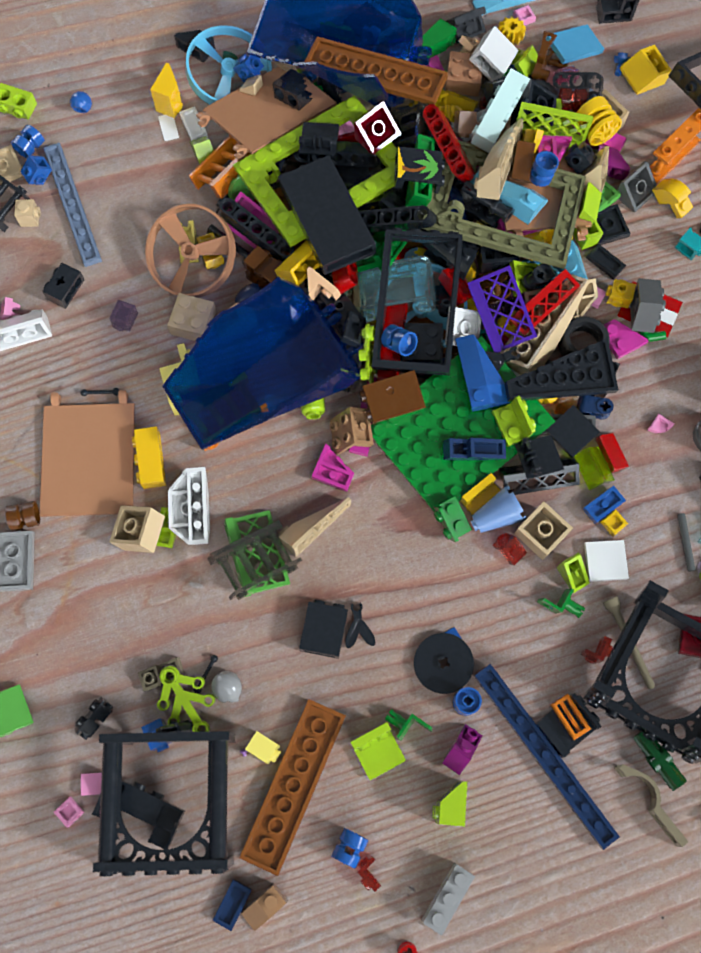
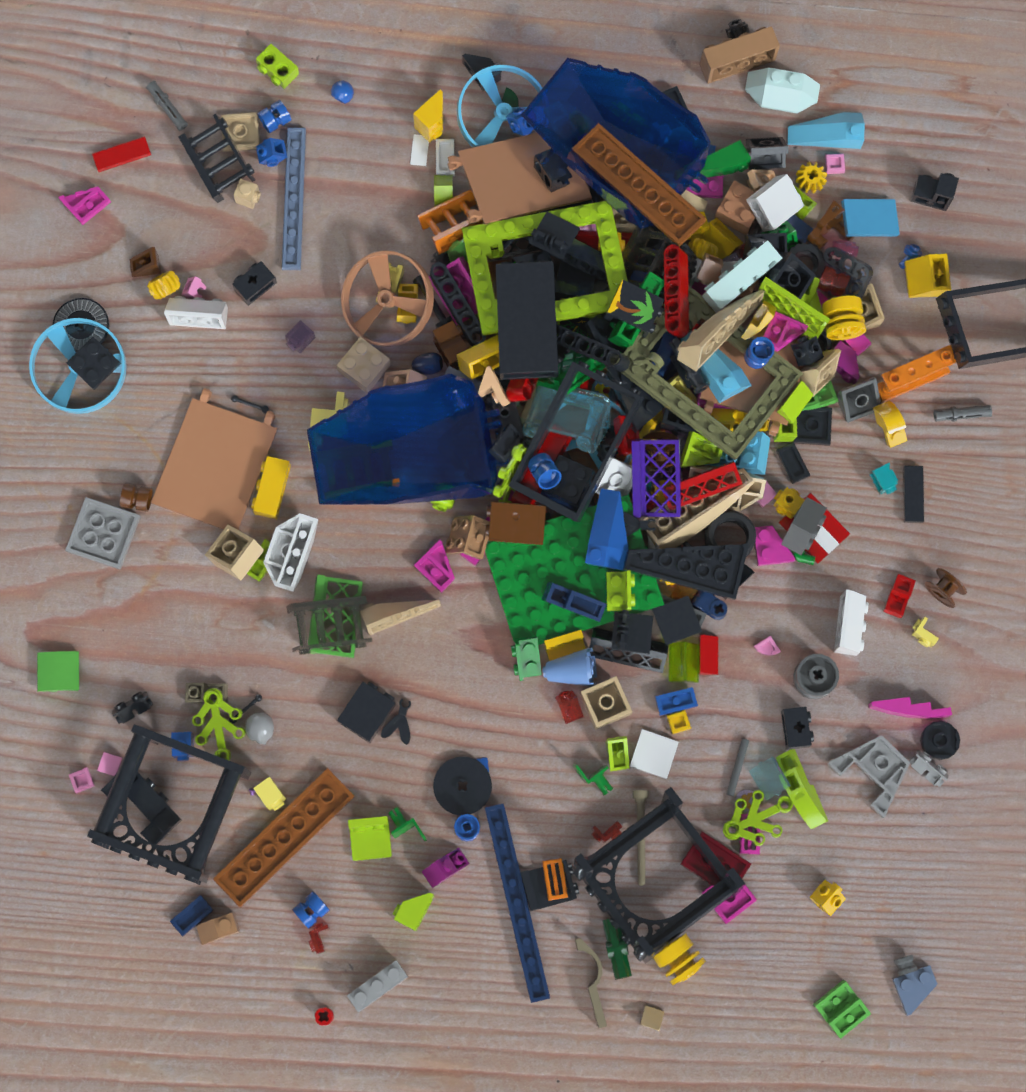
camera: 20 degrees right, 5 degrees up
(184, 726) = (202, 745): black axle -> none
(252, 85) = (516, 143): tan slope -> none
(376, 128) = (612, 250): dark red slope -> none
(522, 160) = (741, 337): reddish brown tile -> none
(527, 61) = (807, 223): lime slope -> none
(539, 276) = (709, 457): black piece -> none

